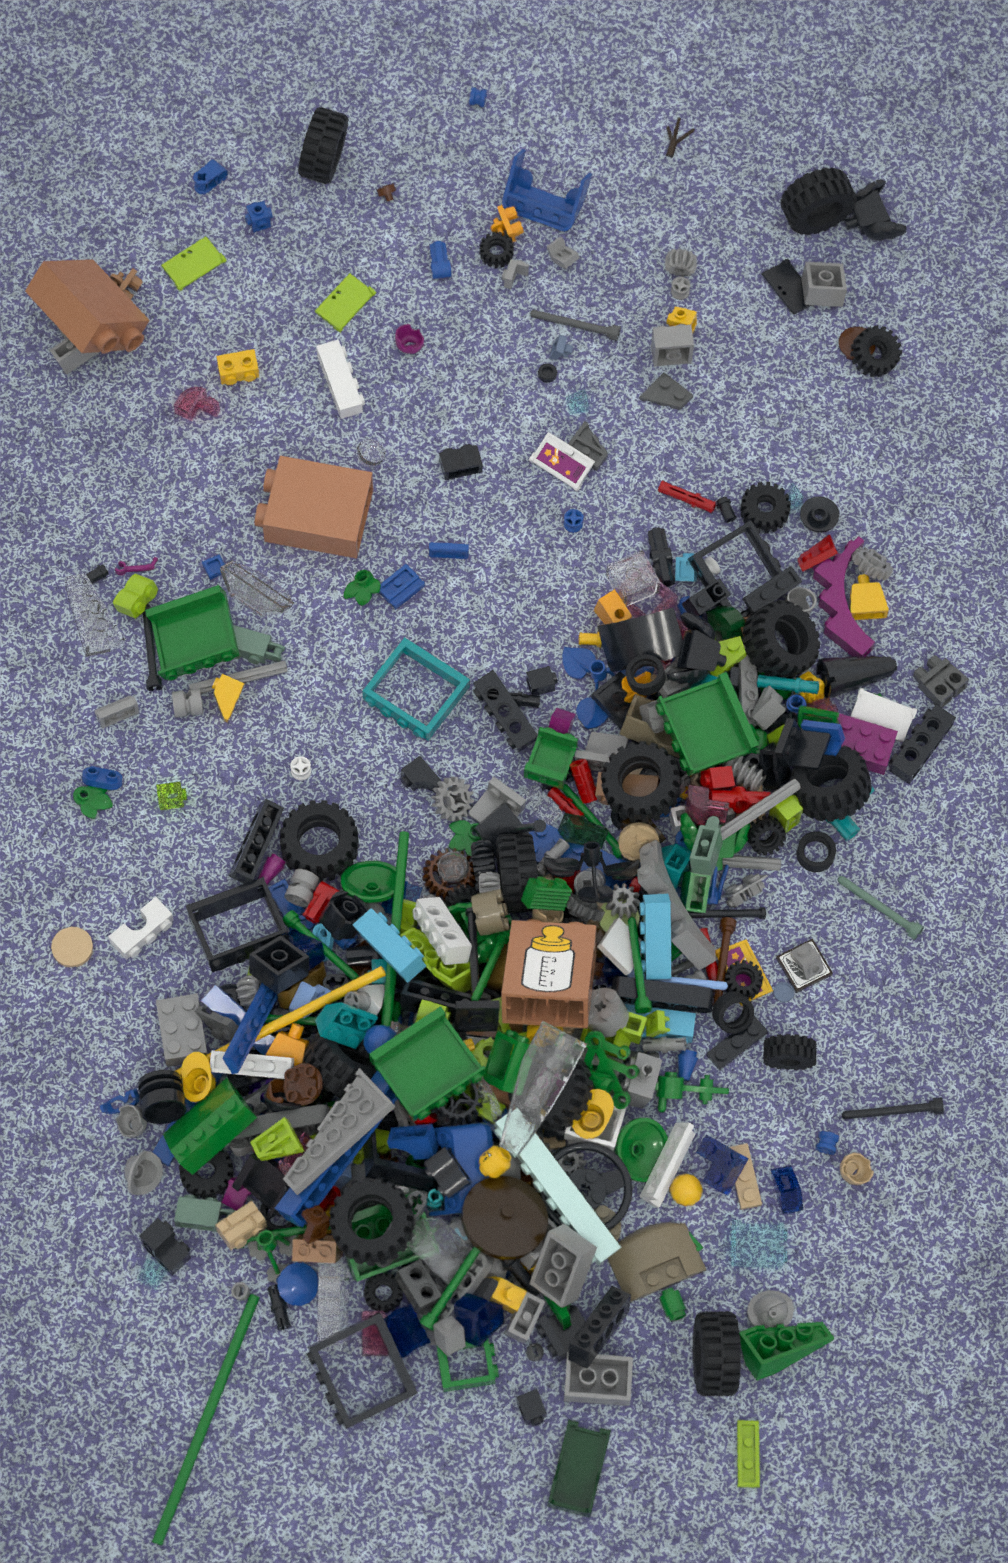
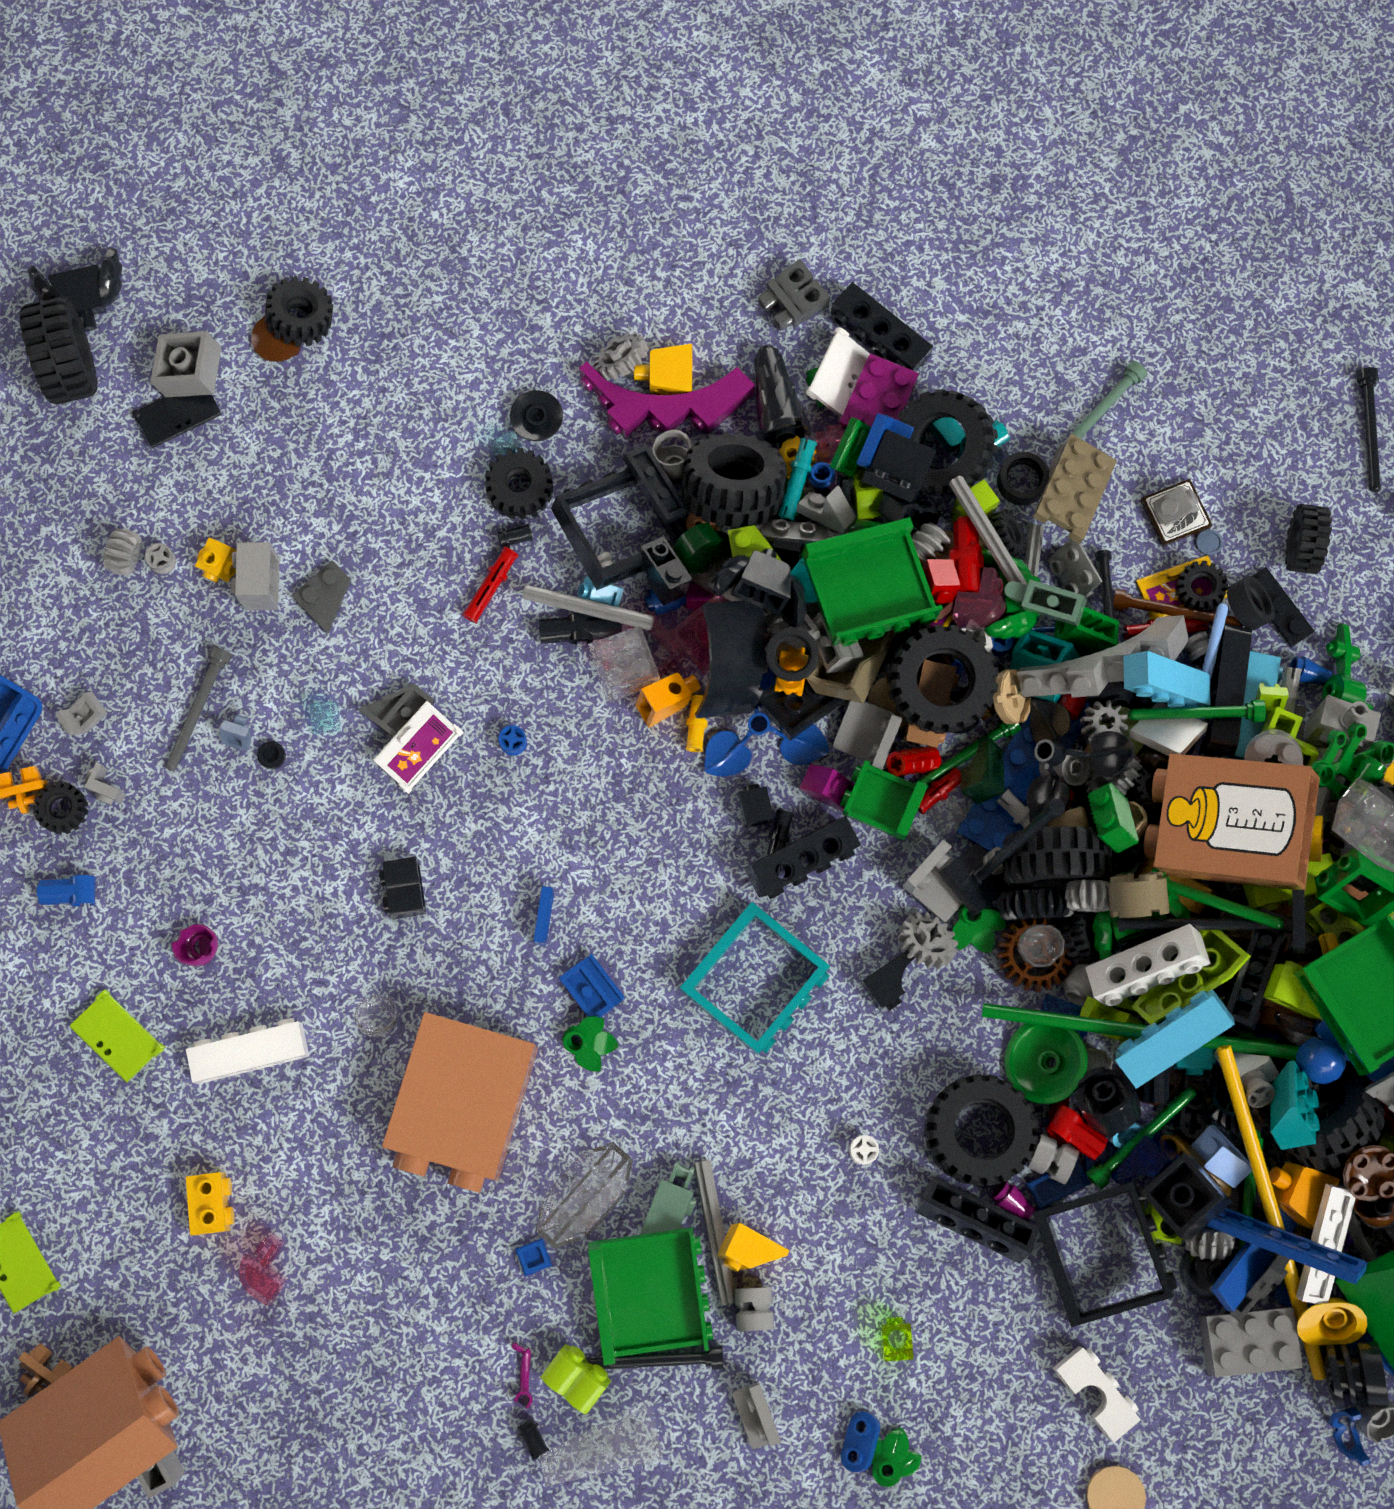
camera: 85 degrees left, 10 degrees up
(674, 556) = (588, 607): none -> light grey axle
(807, 877) = (1075, 487): none -> dark tan piece
(819, 552) = (596, 423): red wing -> none

